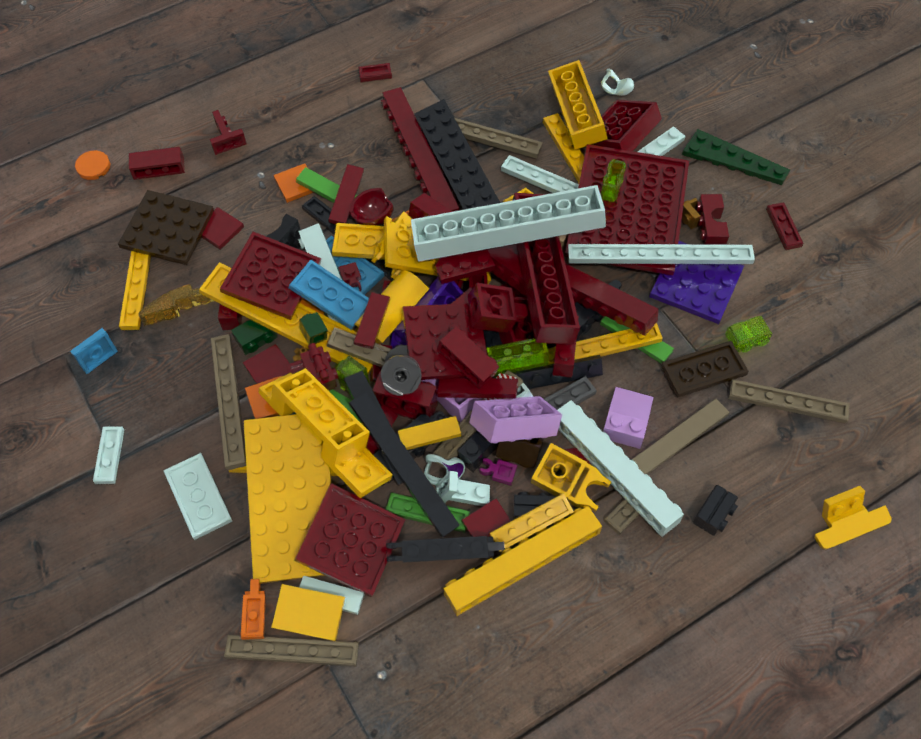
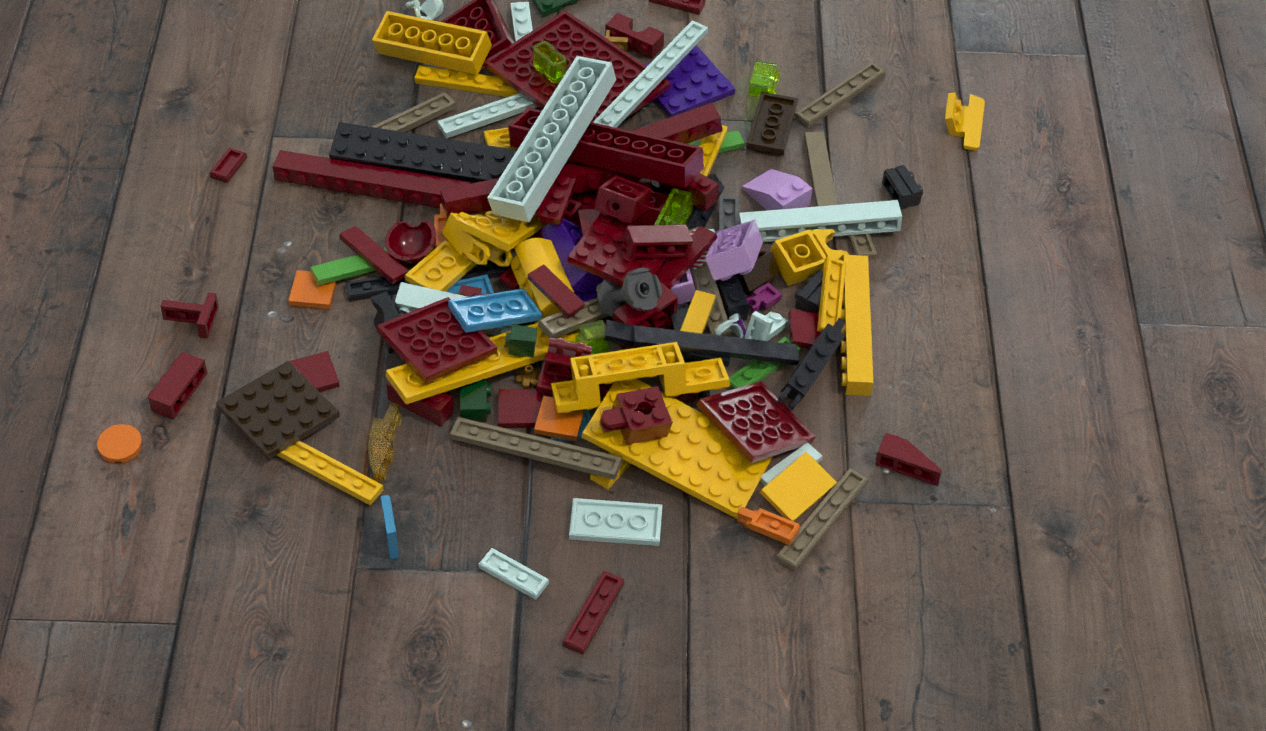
camera: 60 degrees left, 10 degrees down
(100, 529) = (593, 612): none -> dark red tile
(276, 447) = (646, 424): none -> dark red brick
(395, 679) = (904, 458): none -> dark red slope

